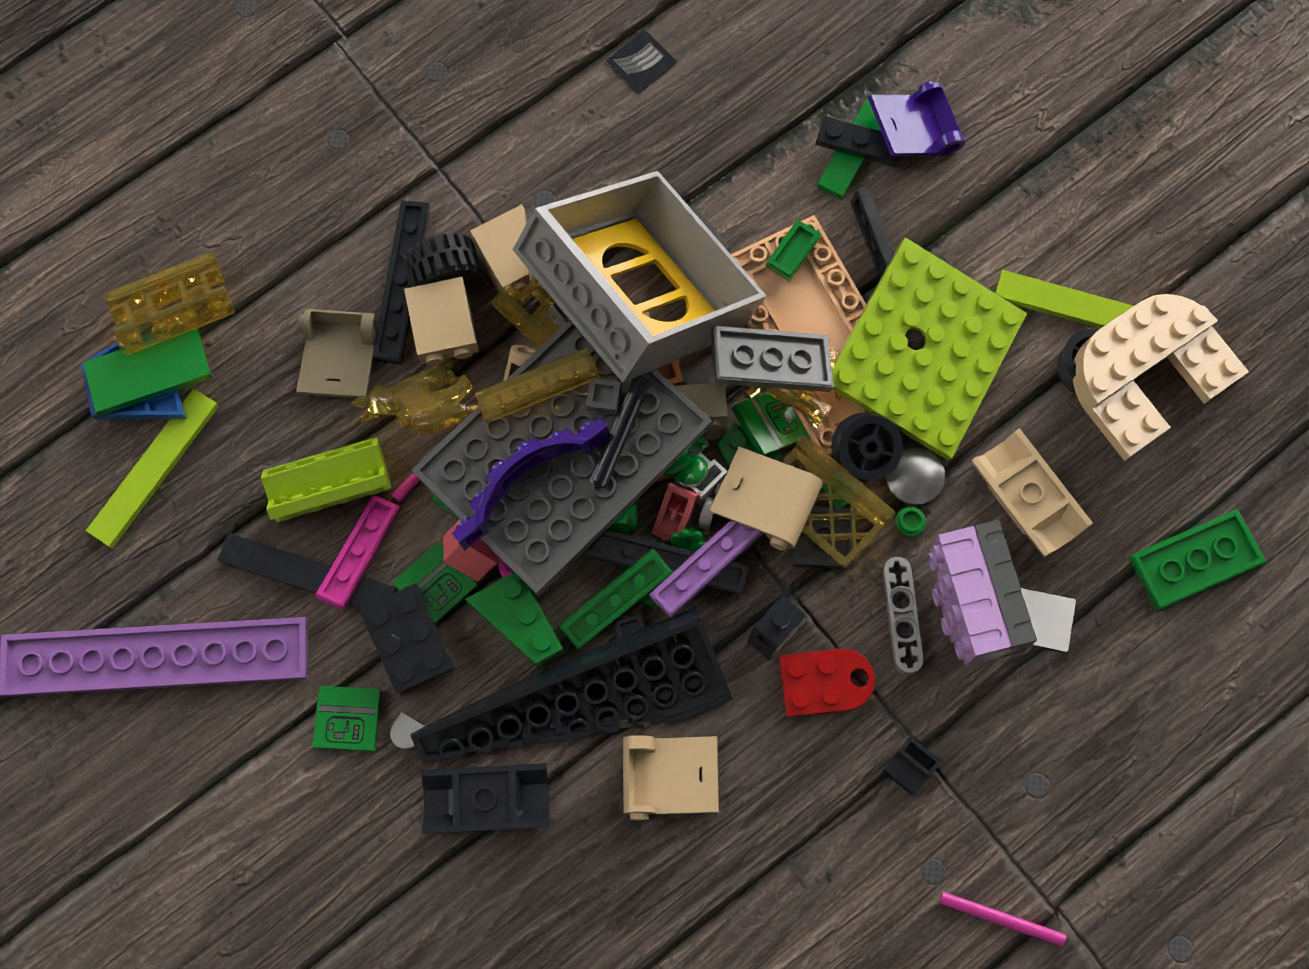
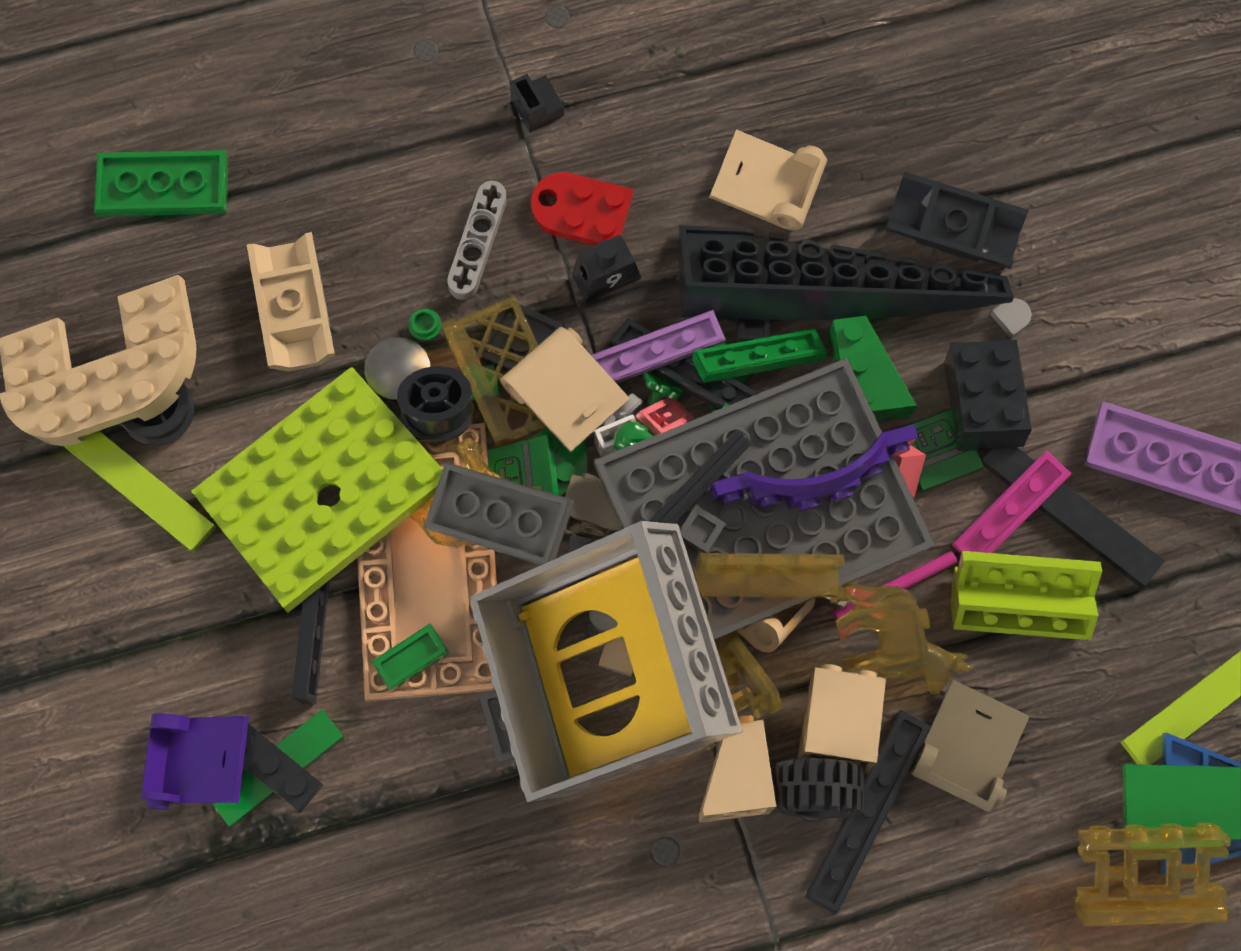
camera: 165 degrees left, 0 degrees up
(347, 718) = (1069, 351): green tile -> none
(980, 594) = (400, 200): lavender piece -> none
(1050, 618) = (341, 188): white sticker -> none

